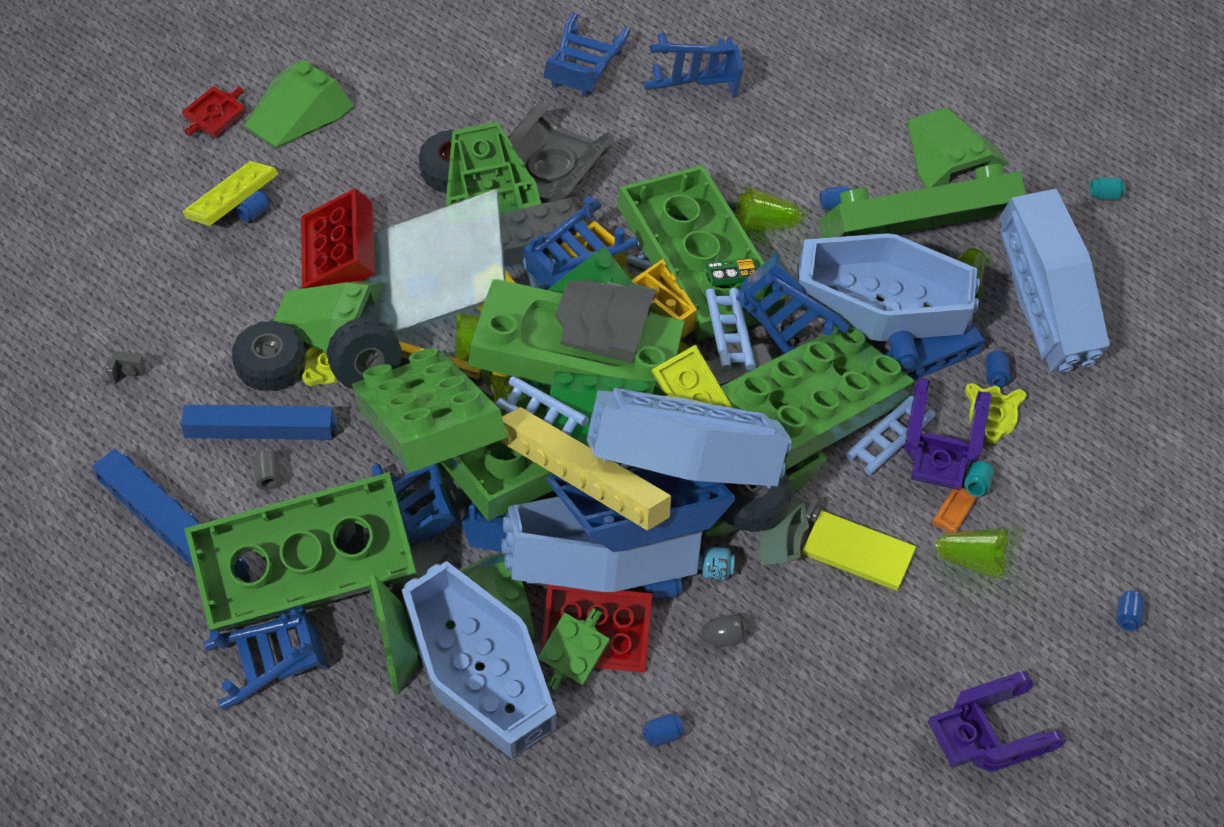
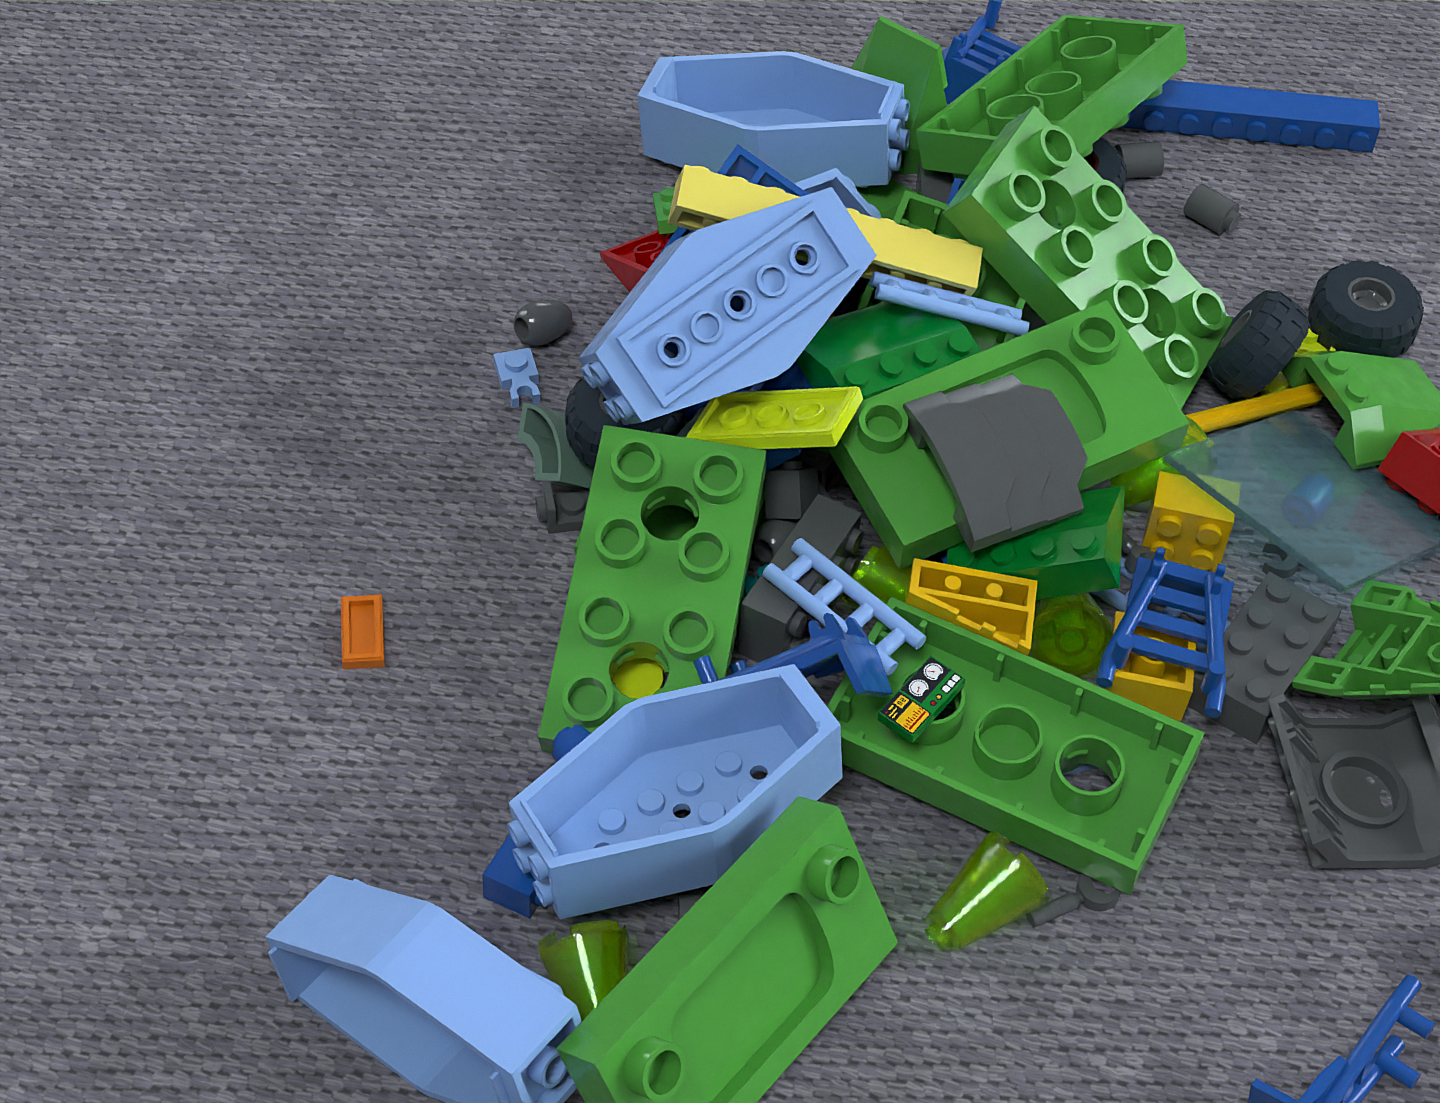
camera: 140 degrees right, 5 degrees down
(258, 422) = (1286, 245): blue brick -> none
(663, 730) = (527, 201): blue brick -> none
(760, 615) = (518, 373): none -> light blue plate
(831, 197) = (906, 1011): blue brick -> none
(859, 550) = (453, 509): neon yellow tile -> none
(875, 435) = (502, 690): light blue bar -> none
(940, 458) = (430, 666): dark purple plate -> none
(970, 738) = (161, 359): dark purple plate -> none
(975, 550) = (291, 568): clear neon green cone -> none
(979, 478) = (352, 672): teal brick -> none
(997, 368) = (435, 865): blue brick -> none
(1002, 411) = (400, 803): neon yellow tile -> none
(1130, 610) = (32, 620): blue brick -> none

